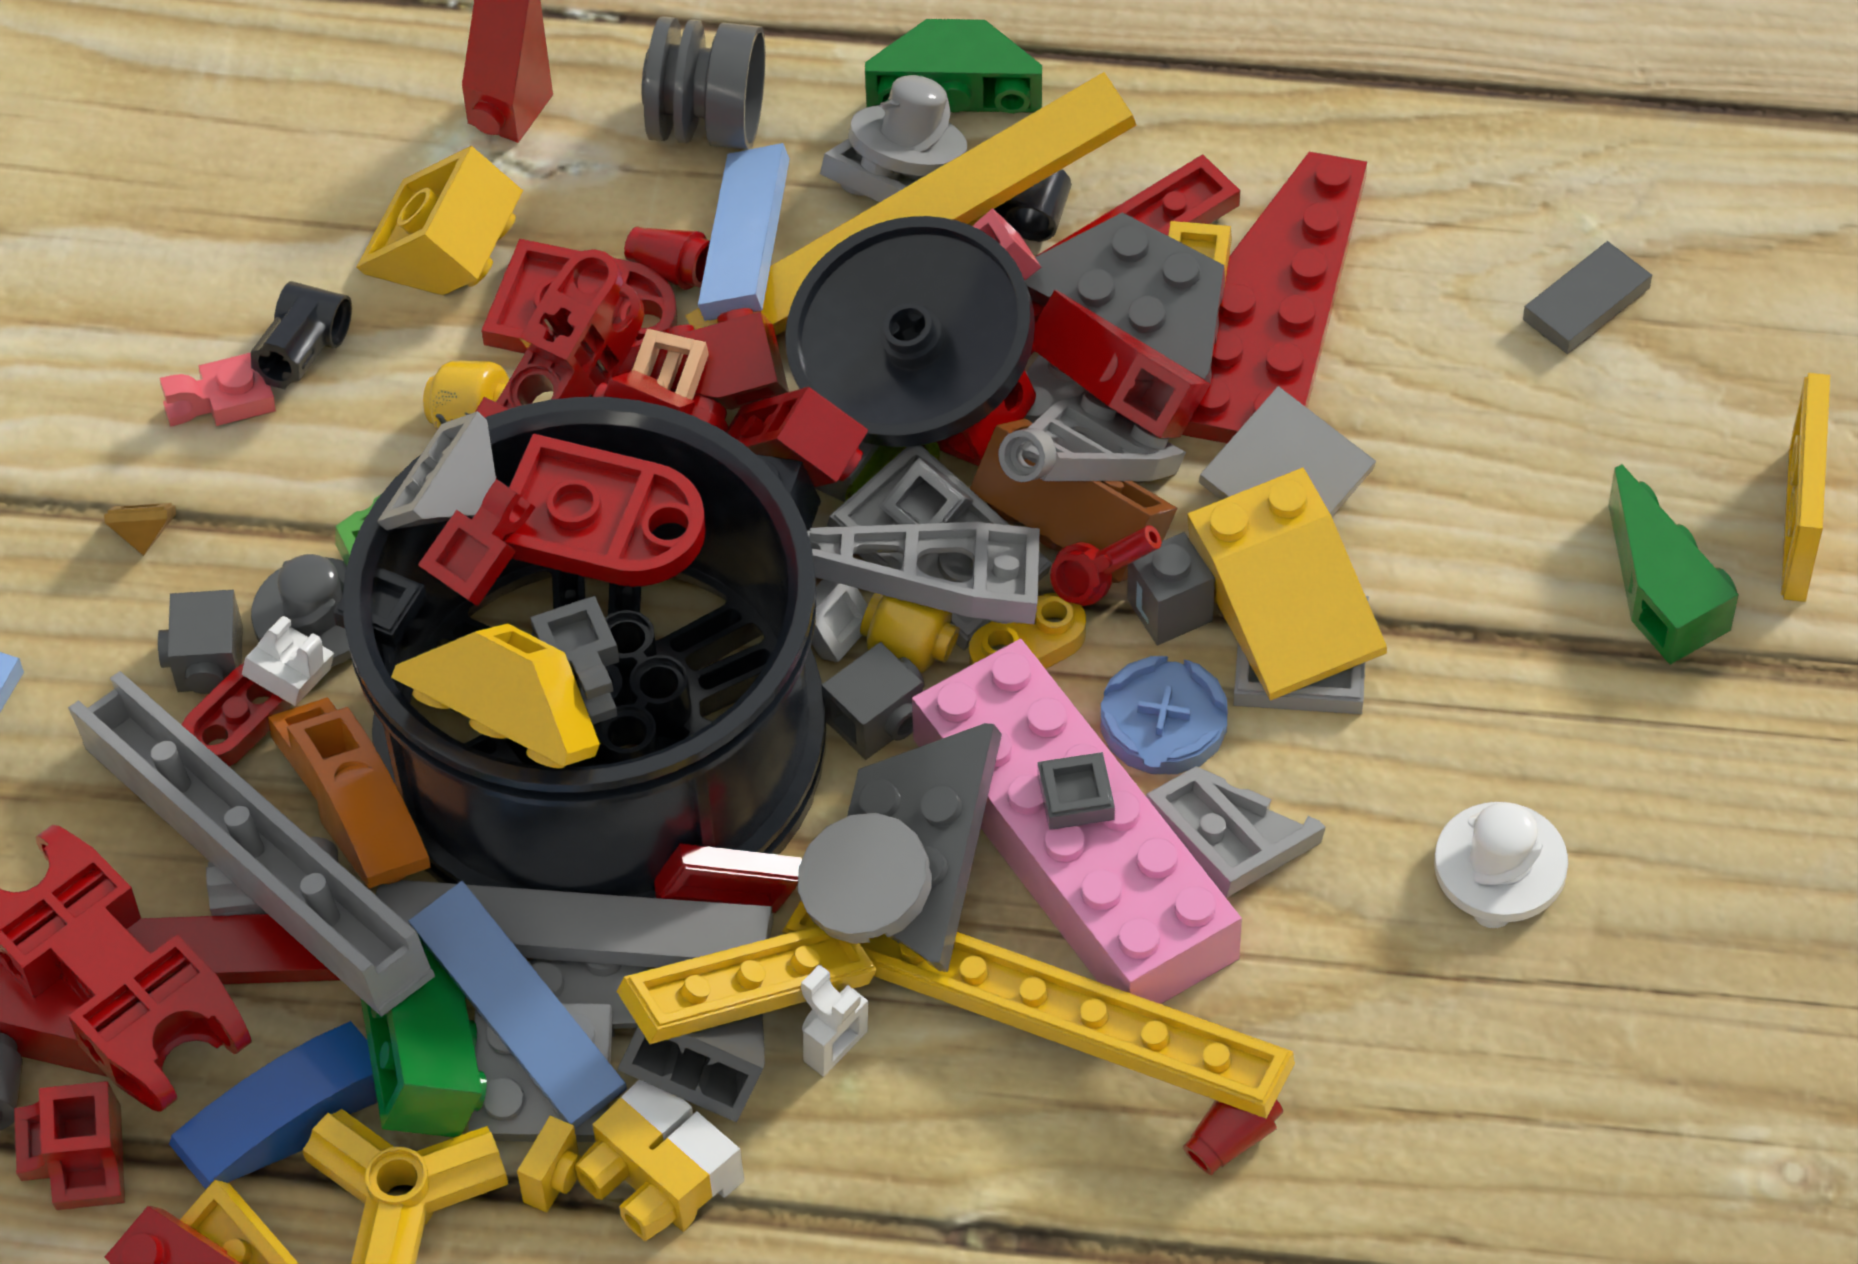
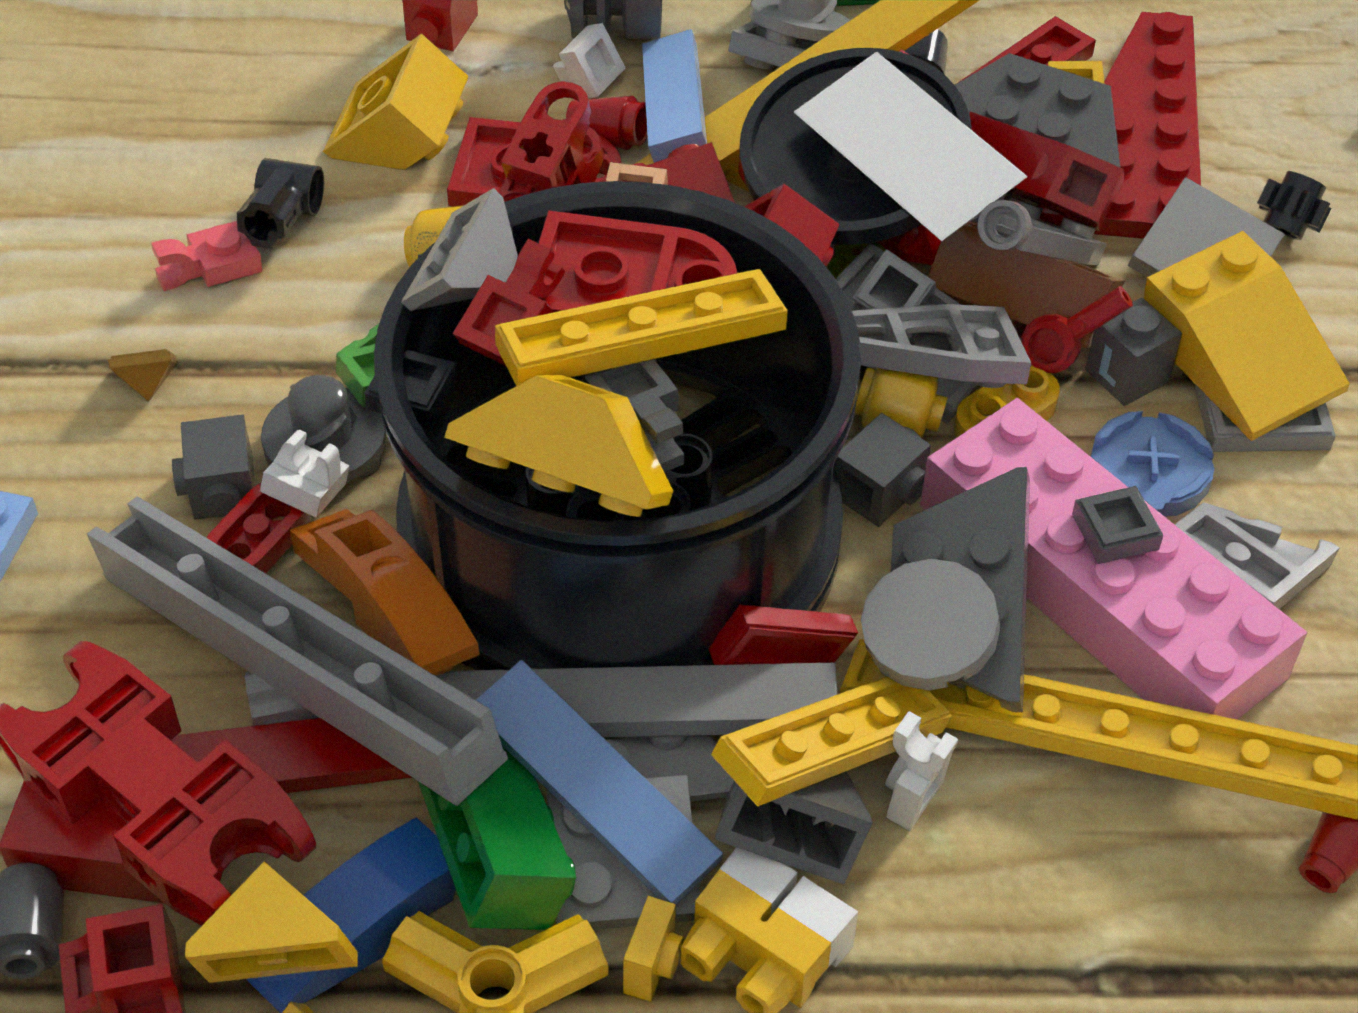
camera: 10 degrees left, 5 degrees down
(197, 1116) = (267, 932): none -> yellow slope
(594, 577) = (641, 327): none -> yellow tile
(663, 177) = (590, 61): none -> white tile
(960, 341) = (910, 145): none -> white sticker
(1400, 424) = (1294, 205): none -> black gear

